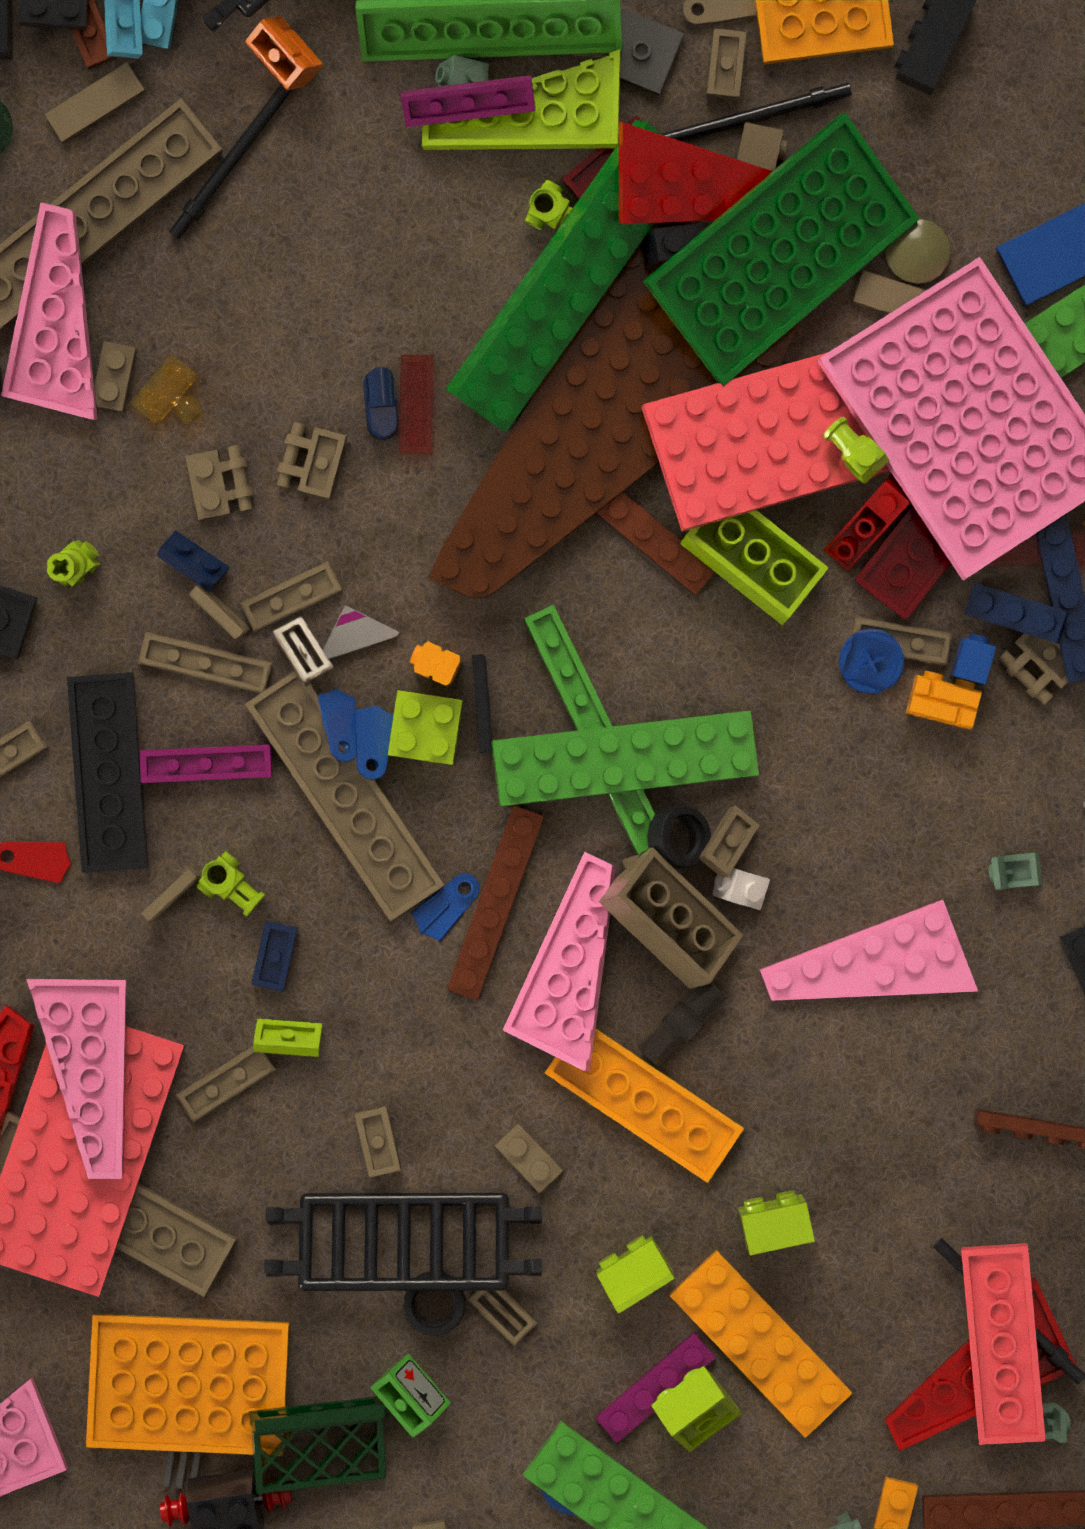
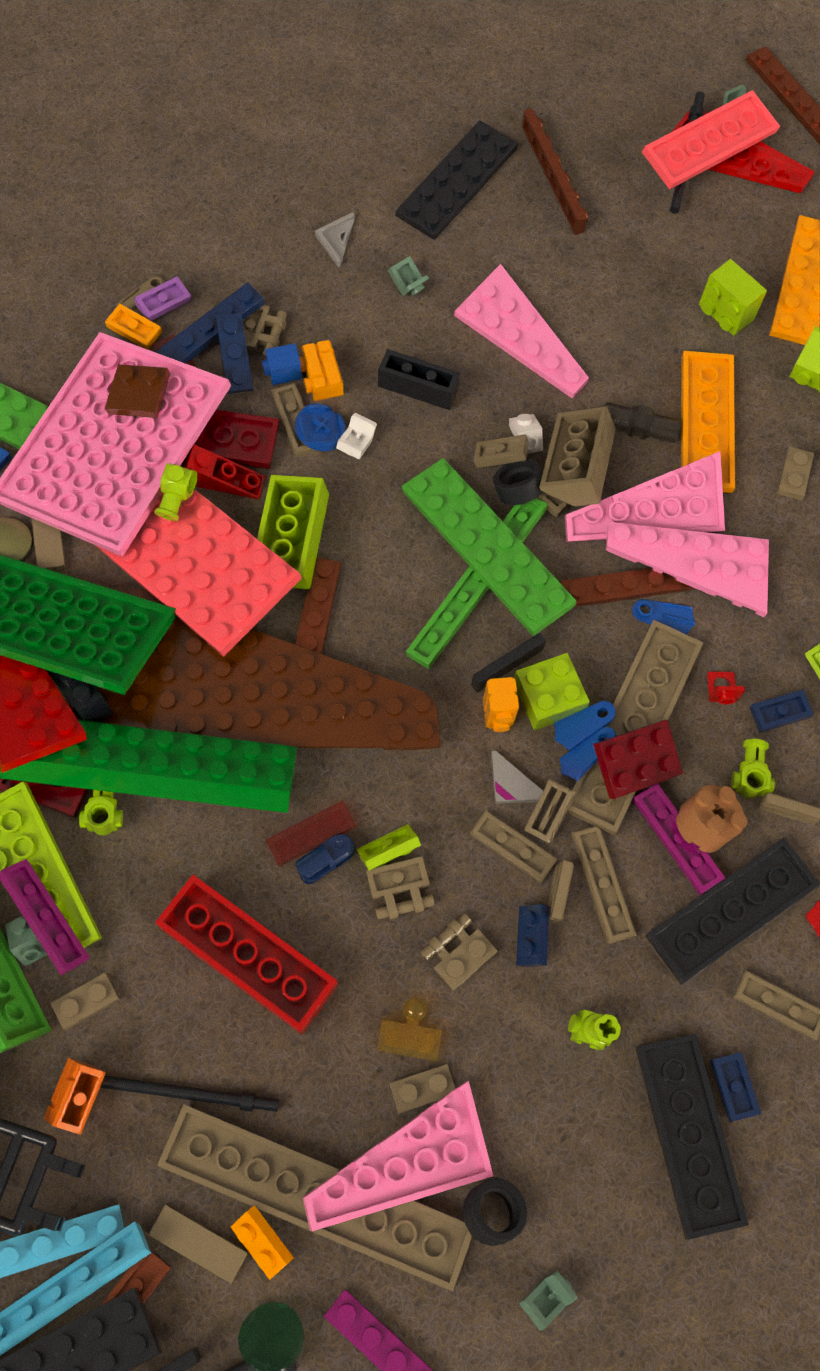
camera: 125 degrees left, 20 degrees down
(63, 158) = (262, 1242): none -> light orange plate
(206, 819) = (711, 818): none -> medium nougat brick
(302, 769) = (638, 759): none -> dark red plate
(321, 909) = (724, 694): none -> red bracket
(326, 276) = (247, 954): none -> red brick
(357, 471) = (388, 847): none -> lime plate
(371, 105) = (85, 1001): none -> dark tan plate
(469, 987) = (706, 561): none -> bright pink wing
(835, 693) = (357, 436): none -> white bracket
(868, 801) = (418, 379): none -> black brick
(1011, 474) = (137, 391): none -> reddish brown plate

